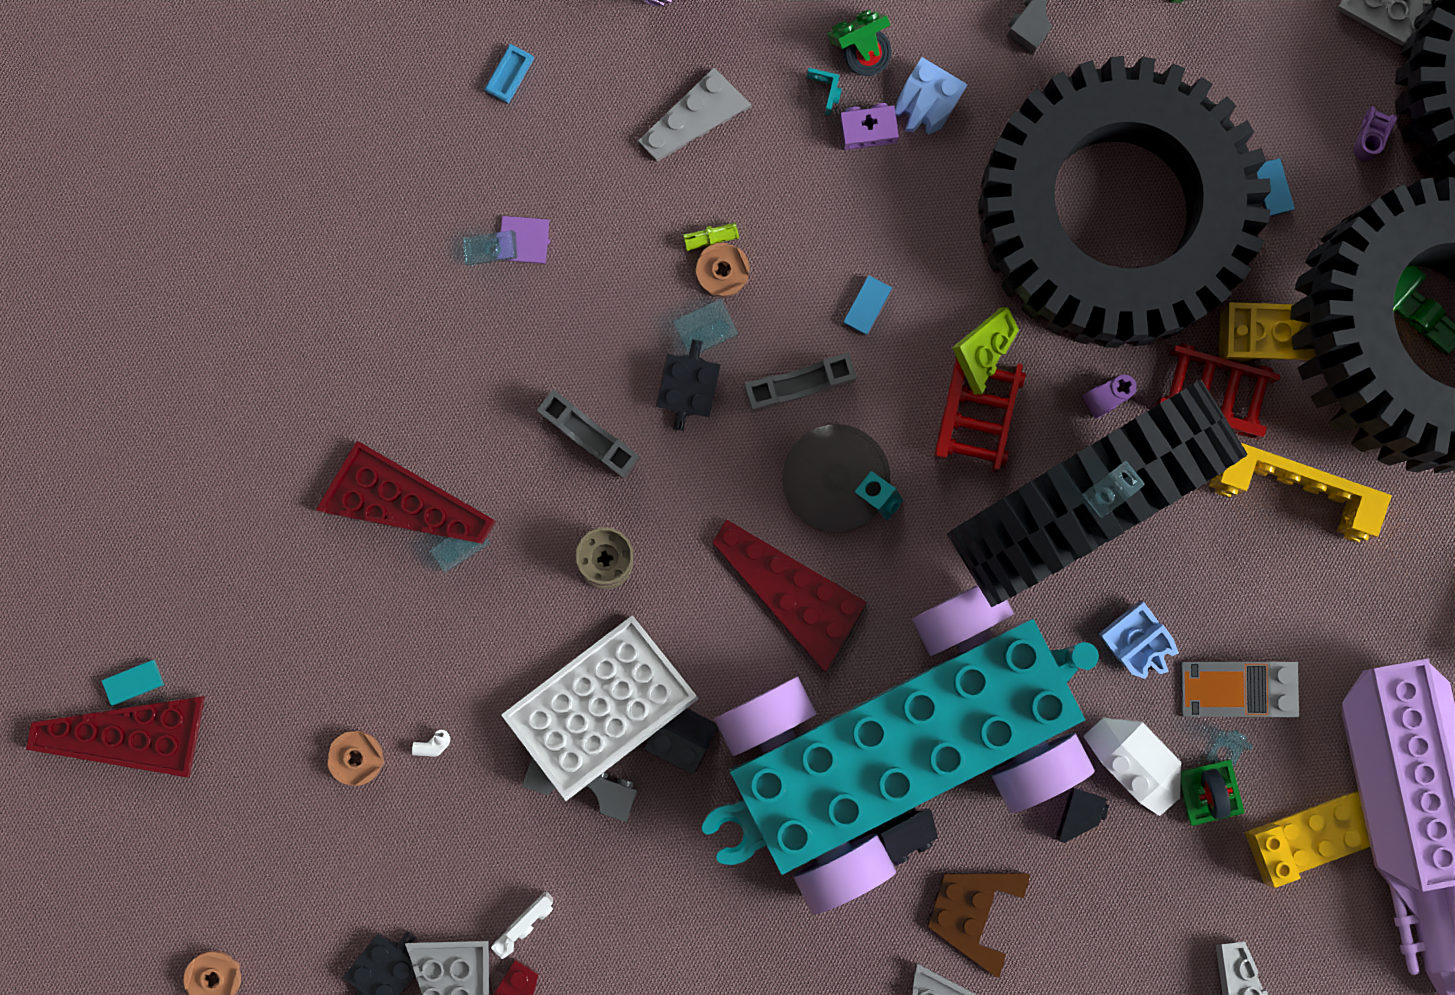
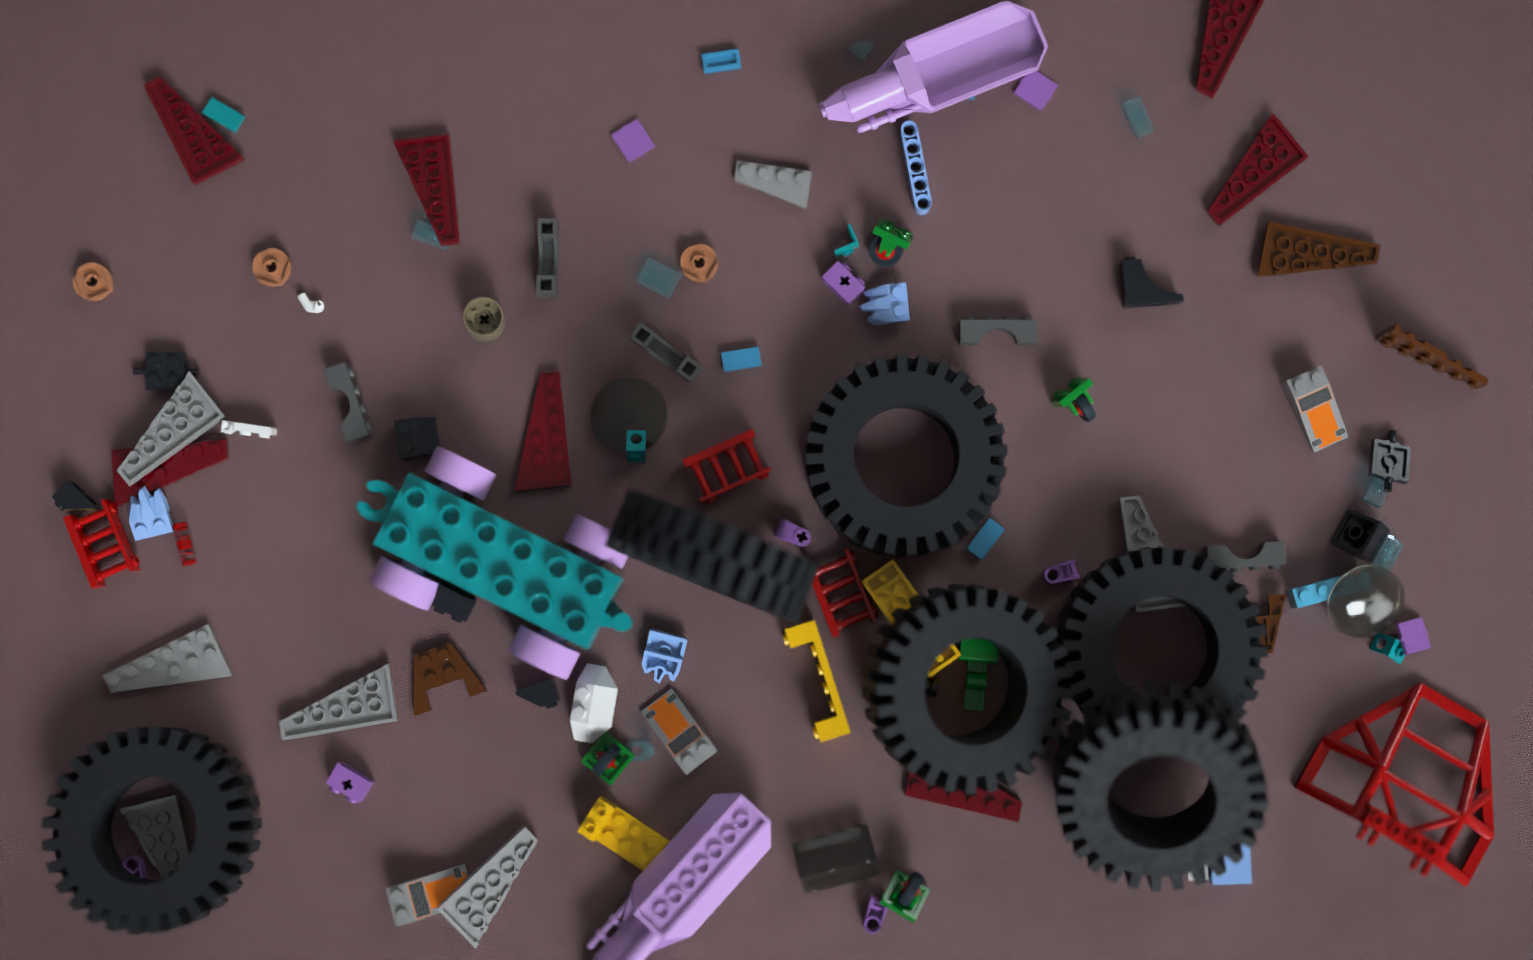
camera: 55 degrees right, 0 degrees up
(490, 248) = (612, 125): clear light blue plate -> none
(599, 707) = (398, 378): white plate -> none
(688, 385) = (618, 292): black plate -> none
(711, 236) = (713, 242): lime pin -> none
(984, 346) = (762, 440): lime wing -> none
(1113, 490) = (697, 549): clear light blue bracket -> none

